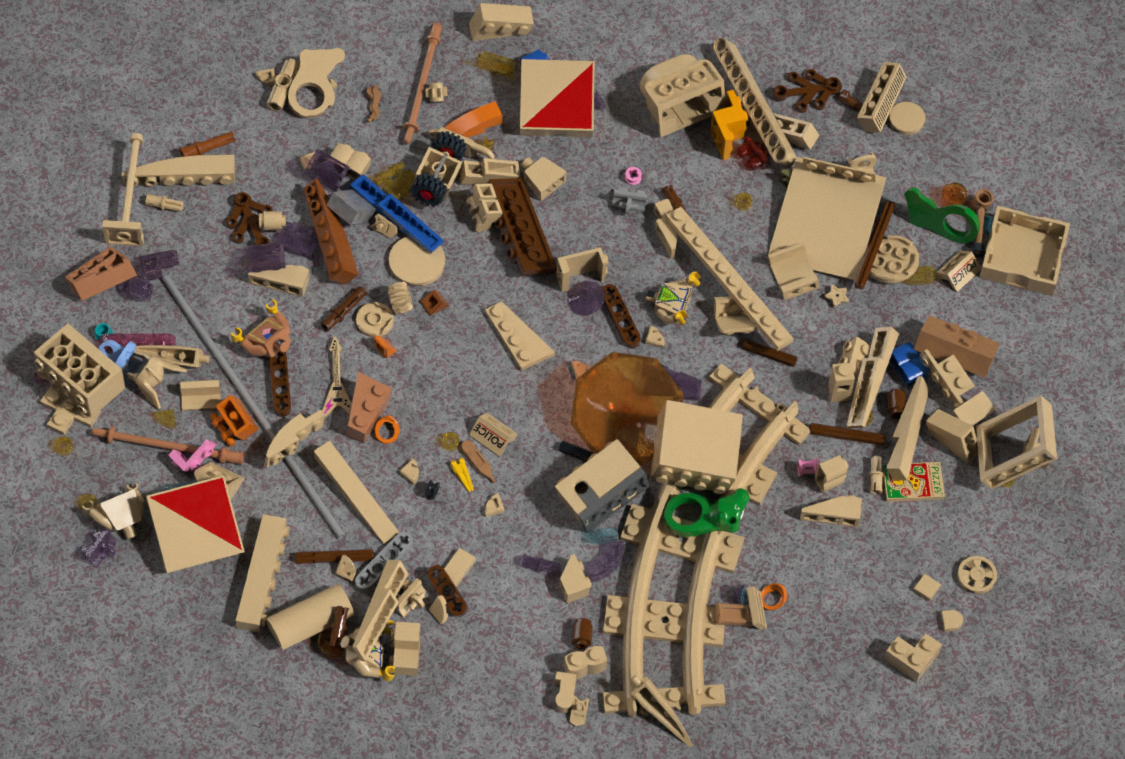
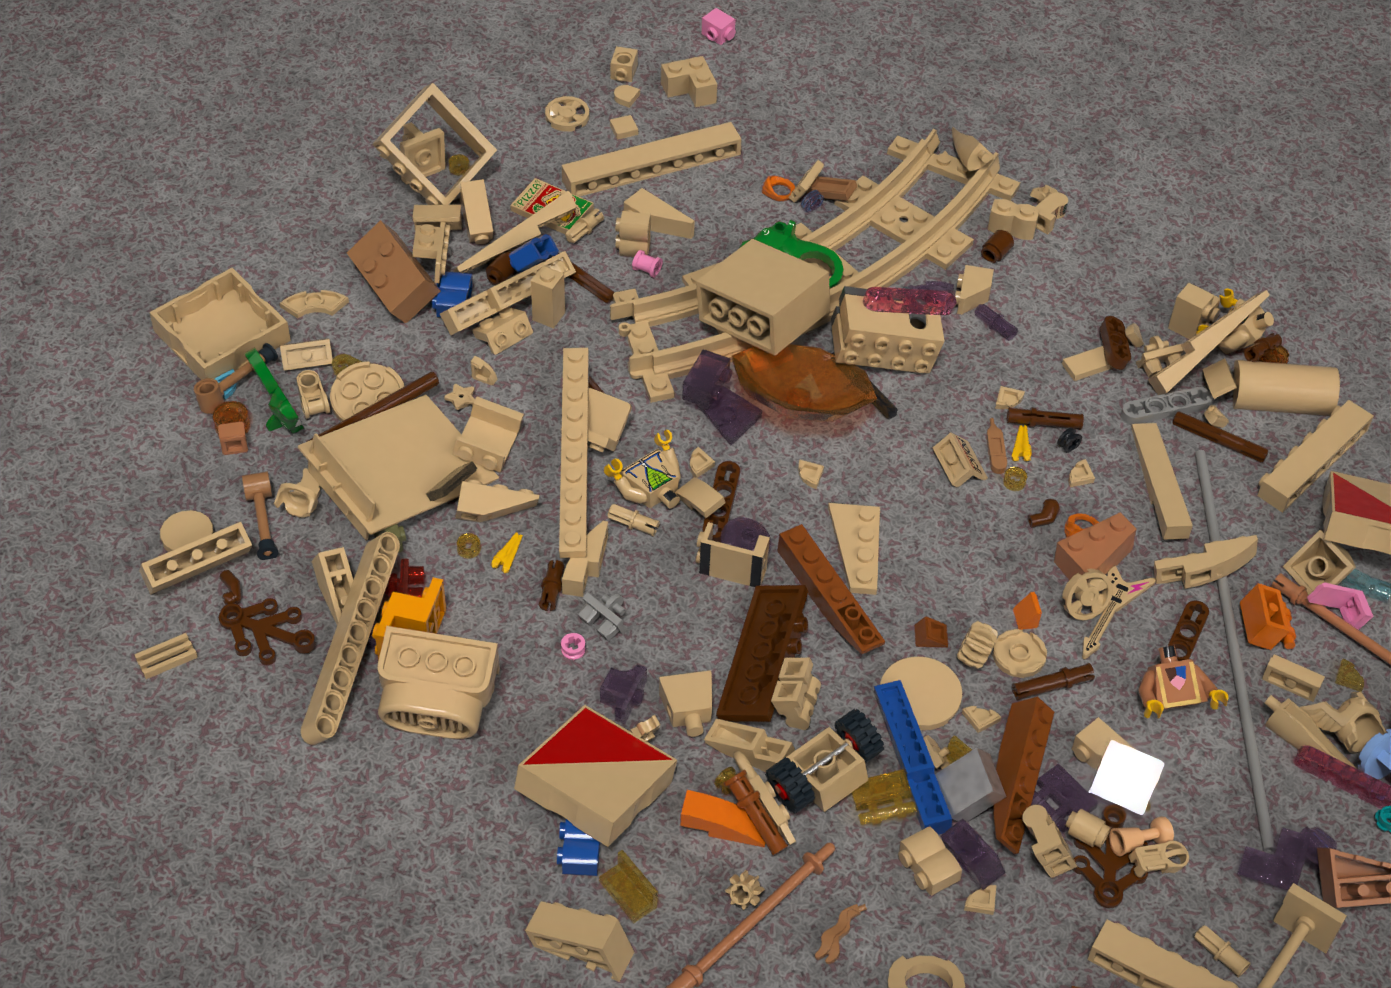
camera: 145 degrees left, 10 degrees down
(227, 229) = (1156, 858): none -> tan piece
(244, 231) = (1128, 839): none -> light nougat piece
(289, 197) = (1051, 847): none -> tan legs
(354, 368) = (1088, 594): none -> tan piece
(358, 593) = (1219, 378): none -> tan slope
(372, 235) = (957, 749): none -> clear yellow tile
(372, 265) = (981, 718): none -> tan tile
(413, 425) = (1047, 515): none -> reddish brown arm
(463, 497) = (1044, 418): none -> reddish brown pin
(465, 128) = (749, 800): none -> dark orange pin
(512, 286) = (827, 589): none -> dark orange slope
(553, 142) = (647, 728): none -> tan plate
(582, 161) = (623, 691): none -> clear purple brick
(598, 495) = (881, 300): none -> clear pink beam
(631, 301) = (700, 496): none -> tan slope
(662, 271) = (632, 519): none -> tan axle
(691, 382) = (706, 379): none -> clear purple brick
(718, 211) = (507, 553): none -> yellow piece
(752, 228) = (485, 502): none -> tan slope
(783, 220) = (451, 481): none -> clear smoke tile
(841, 319) = (482, 371): none -> tan tile
(851, 36) = (163, 652): none -> tan tile
(879, 561) = (651, 159): none -> tan brick
(880, 411) = (533, 253): none -> blue brick
(893, 163) = (257, 488): none -> medium nougat piece
(923, 239) = (311, 394): none -> tan piece
(939, 182) = (232, 438): none -> nougat slope
(940, 731) = (718, 26): none -> bright pink brick
(976, 651) = (624, 64): none -> tan brick
(991, 311) = (305, 303): none -> tan tile

